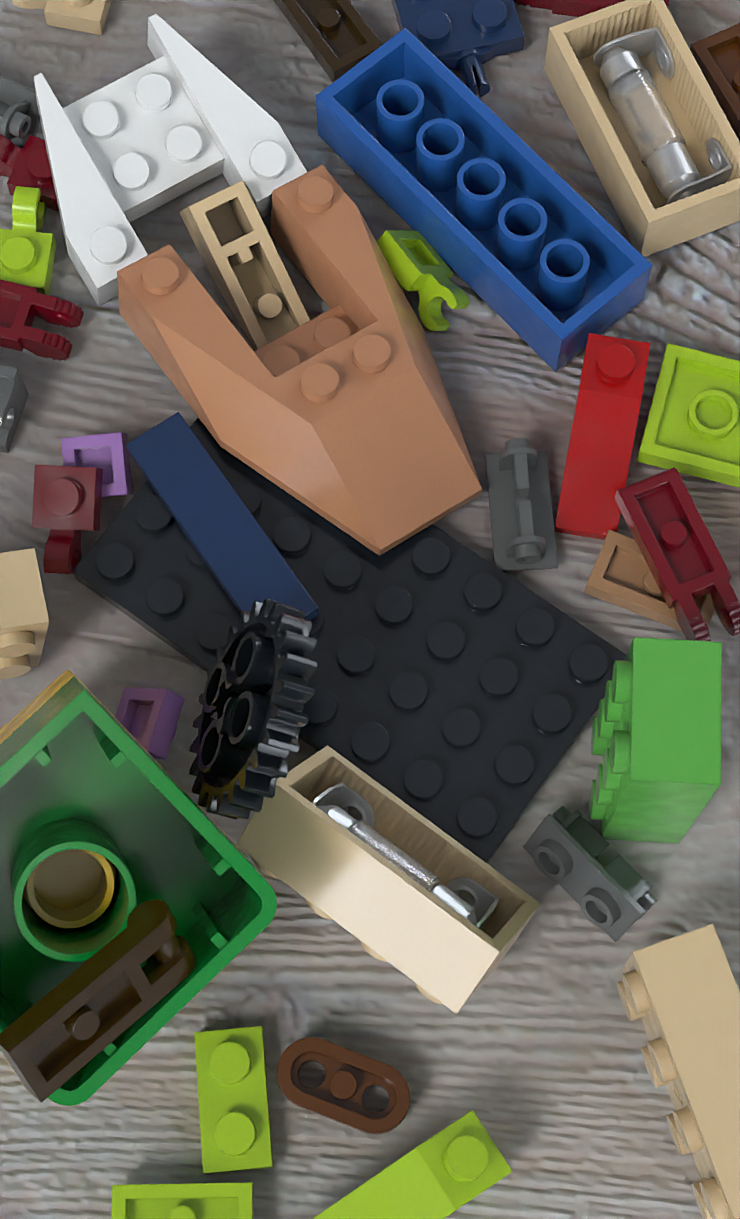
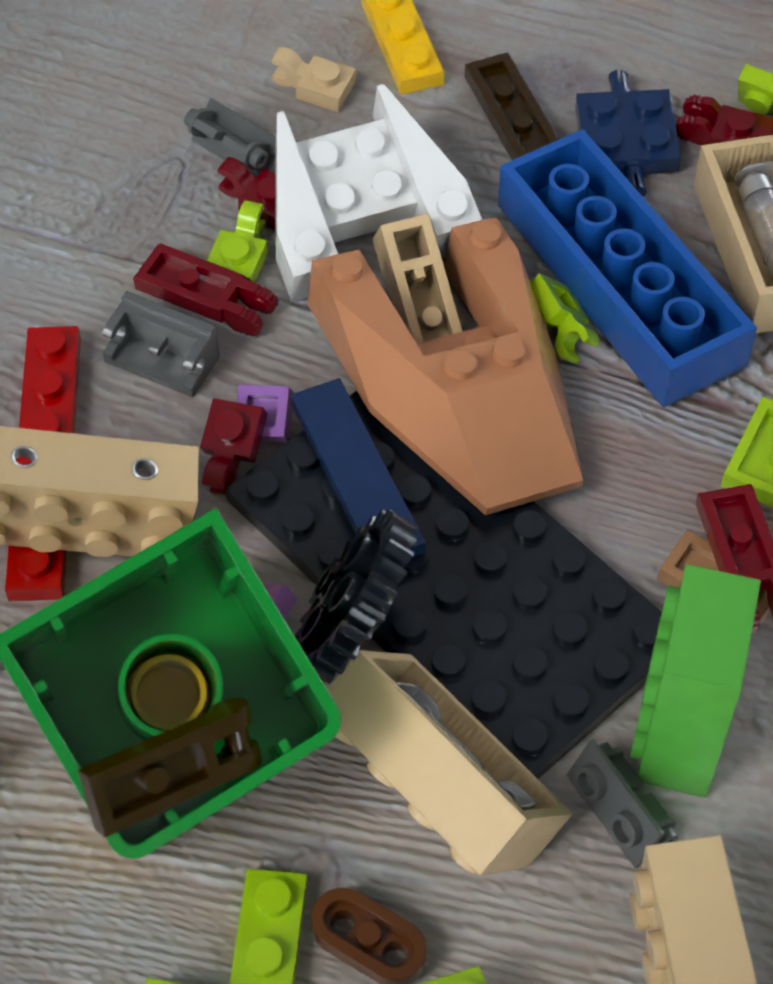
camera: 10 degrees right, 15 degrees down
(521, 508) = (614, 503): dark grey hinge -> none
(601, 435) = (693, 456): red slope -> none

